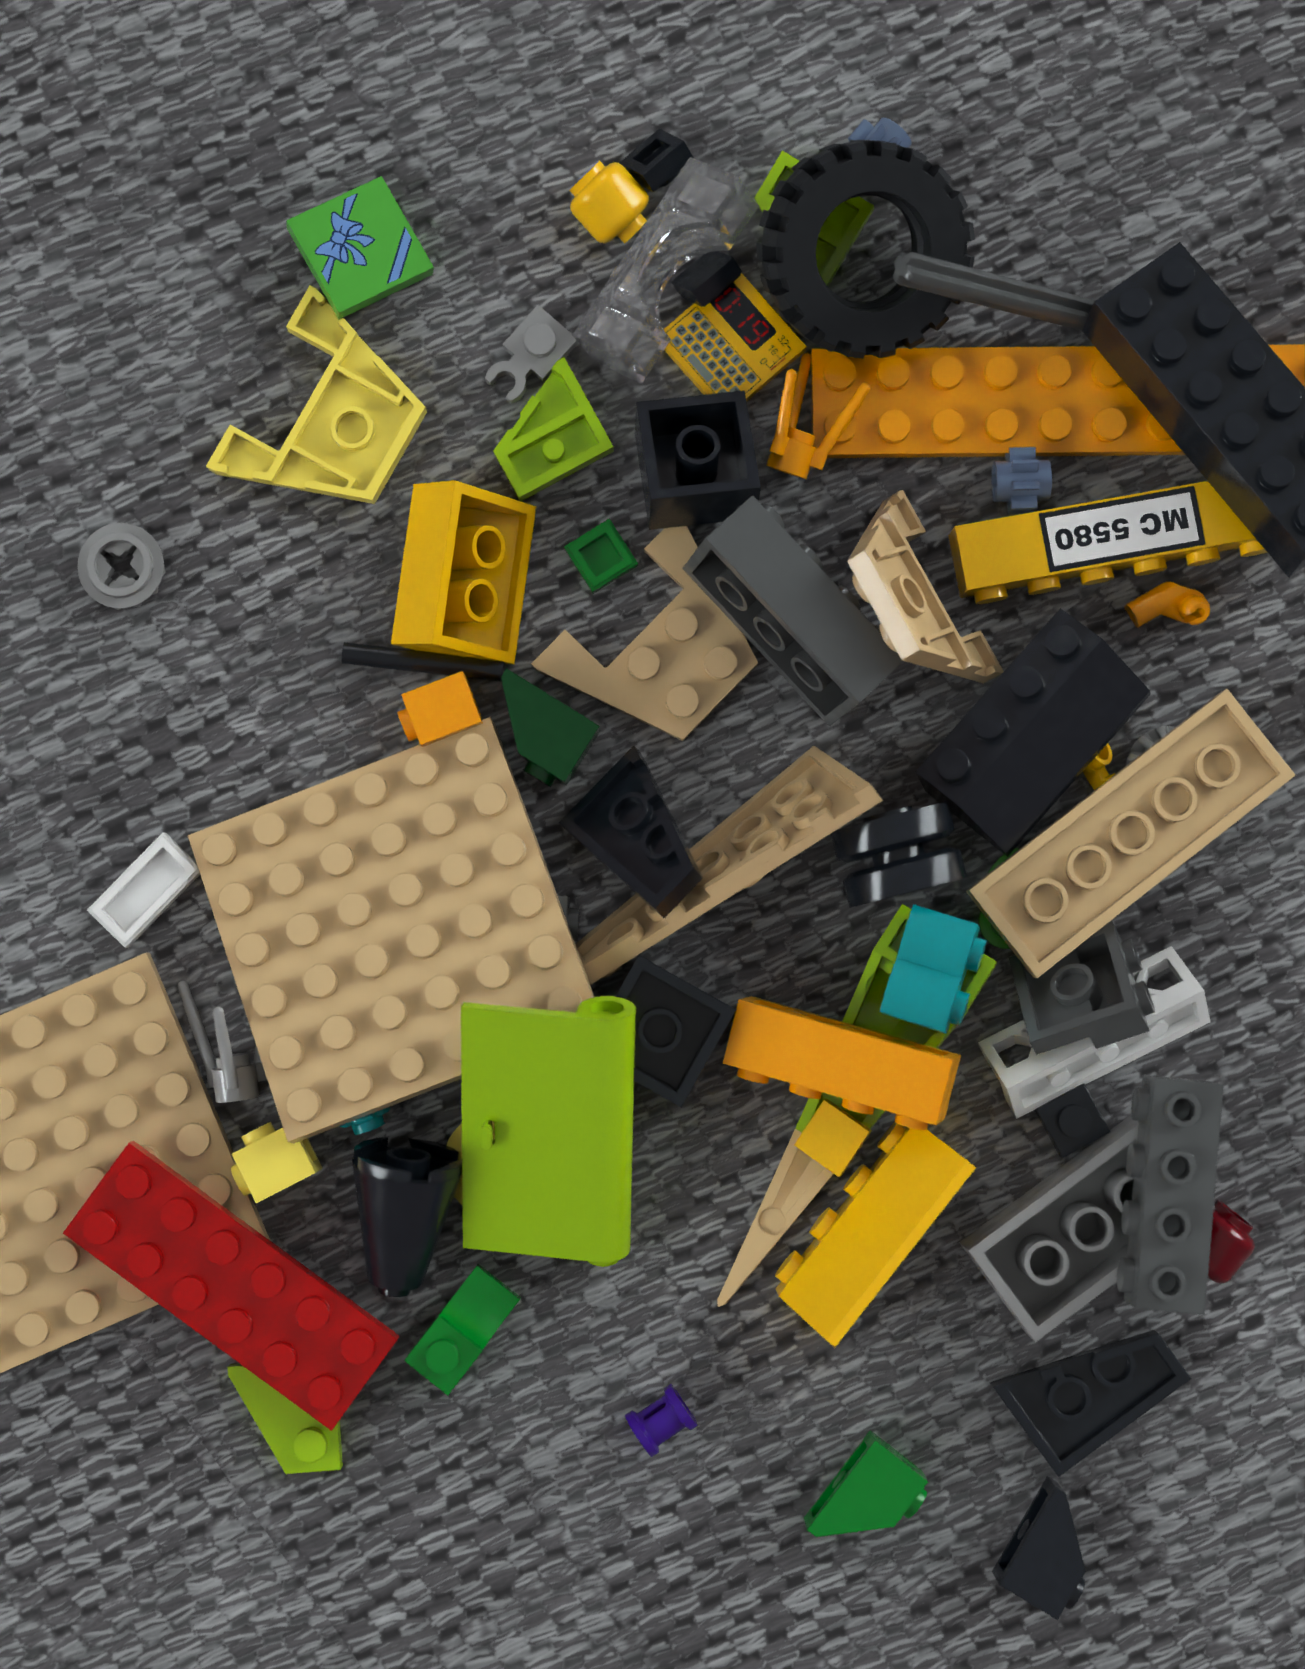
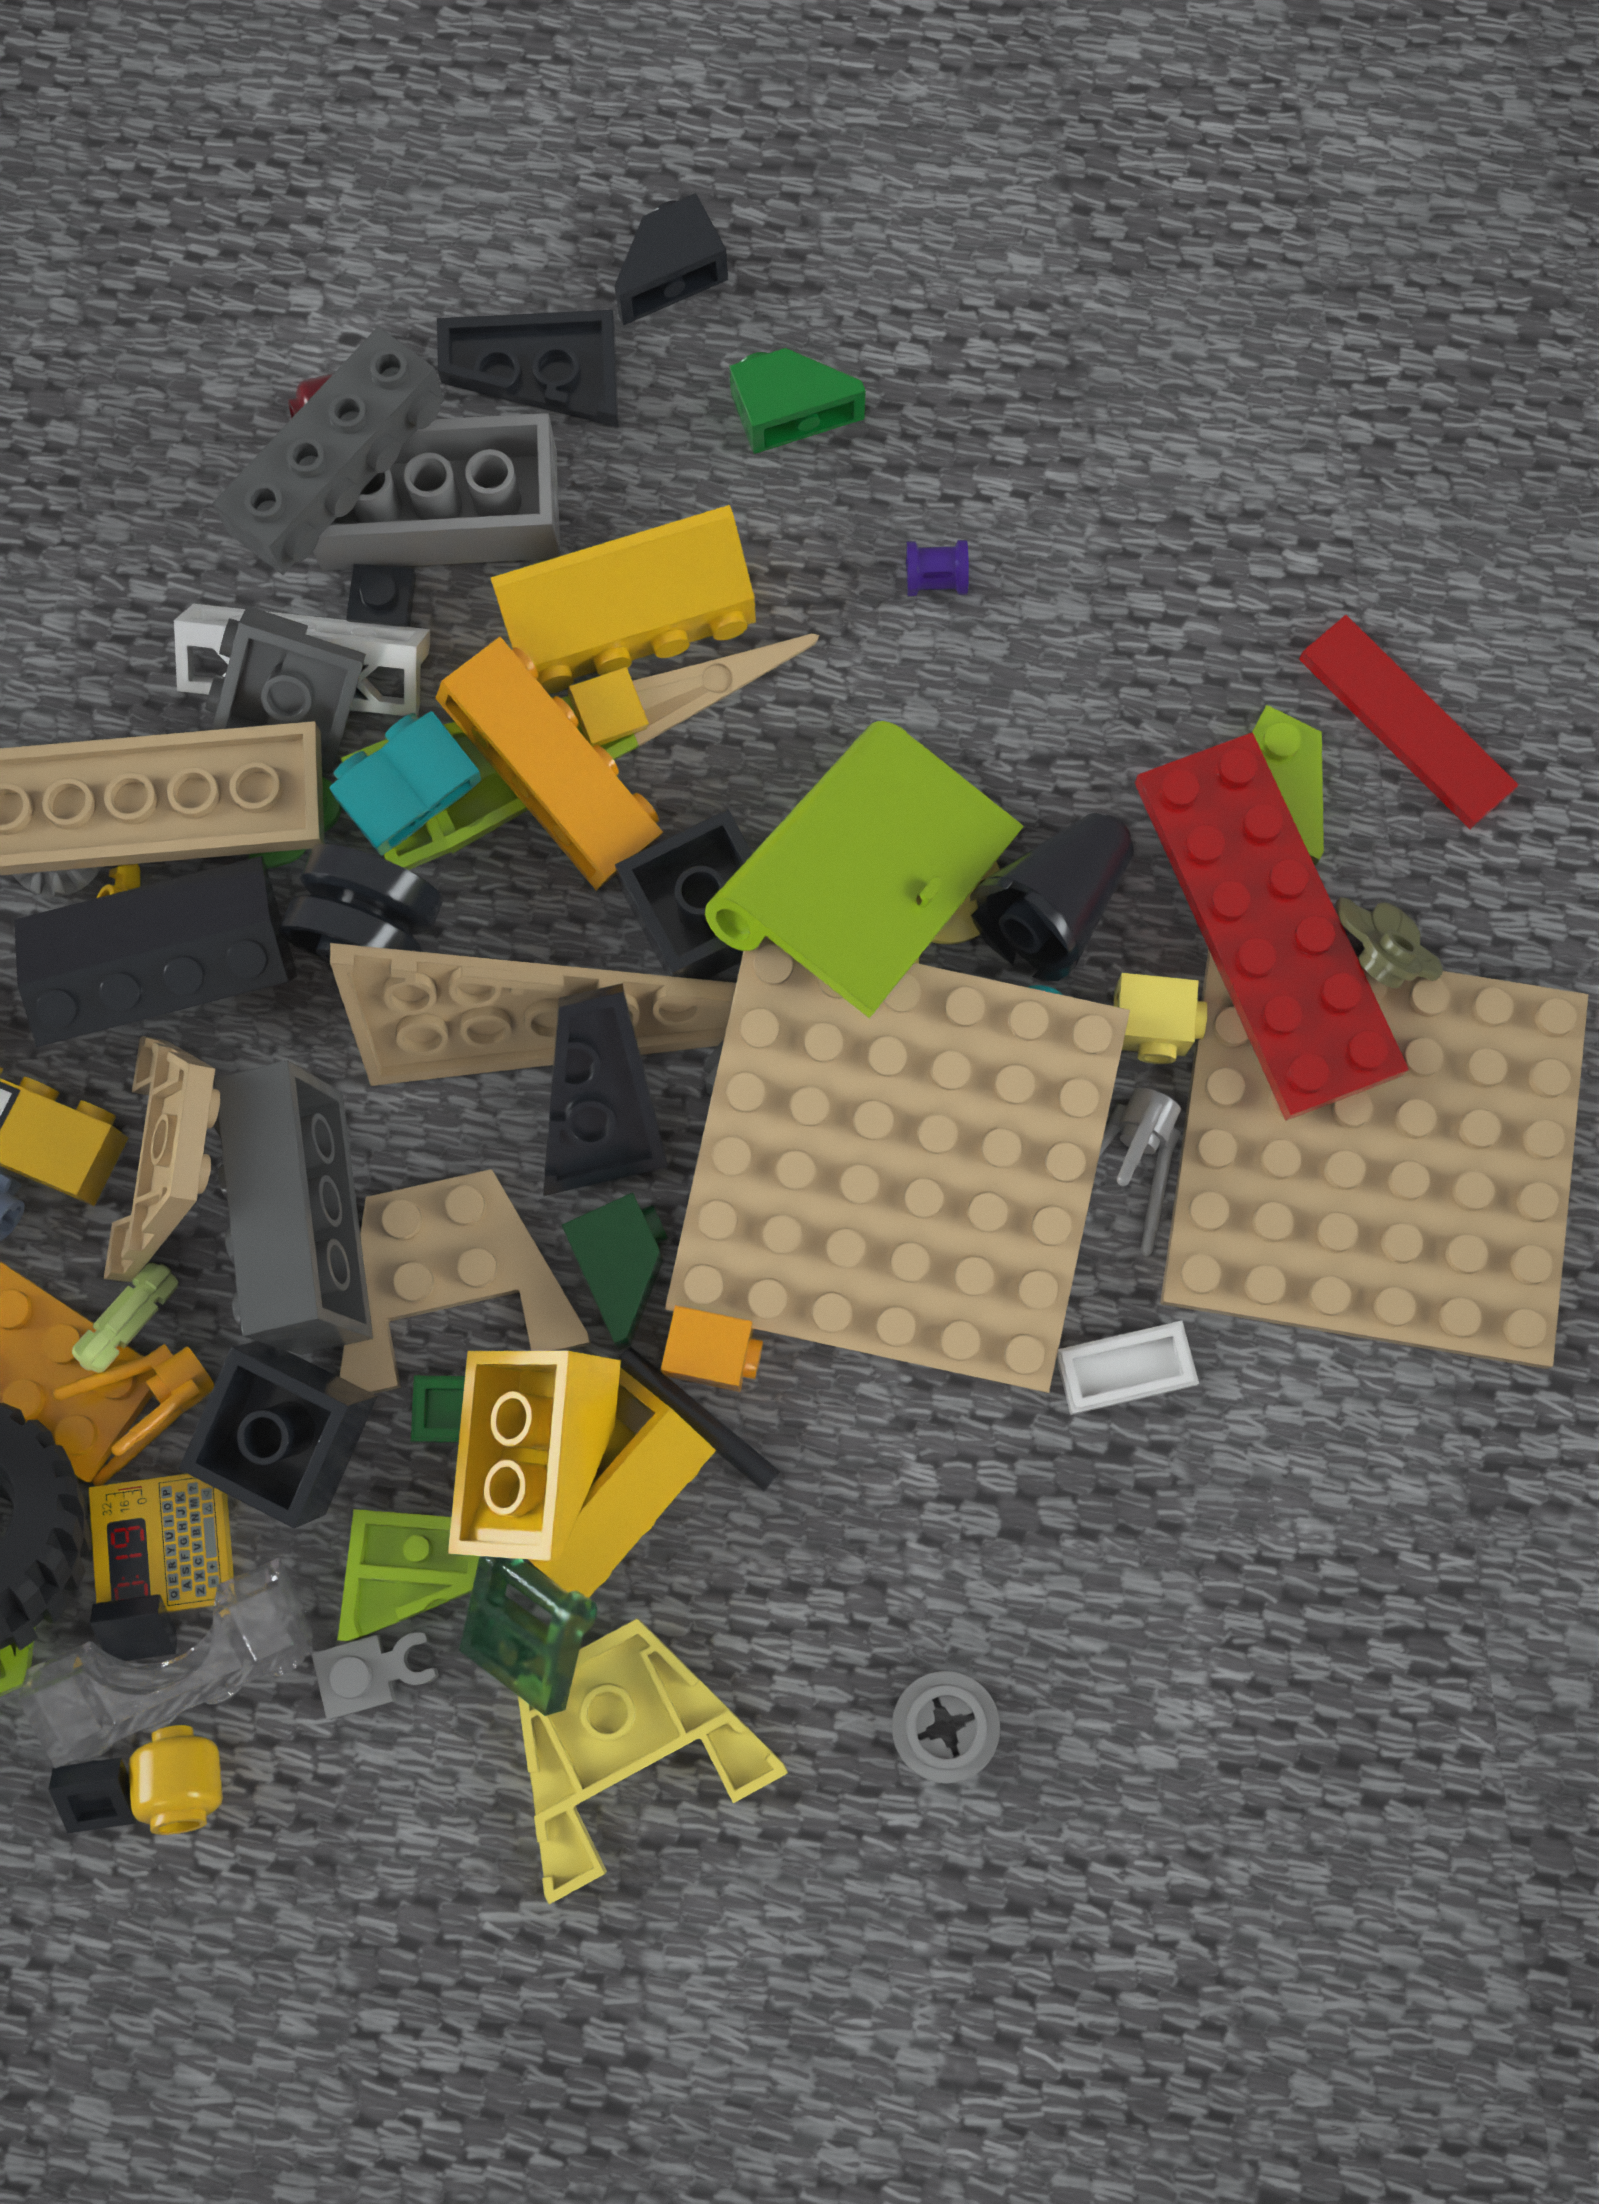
camera: 145 degrees left, 10 degrees down
(133, 1329) = (1389, 942): none -> olive plate
(226, 1528) = (1408, 722): none -> red tile
(359, 247) = (468, 1912): bright green tile -> none
(438, 428) = (515, 1644): none -> clear green plate
(462, 1329) = (1073, 754): green arch -> none
(513, 556) = (529, 1449): none -> yellow slope
(862, 469) = (125, 1317): none -> yellowish green axle

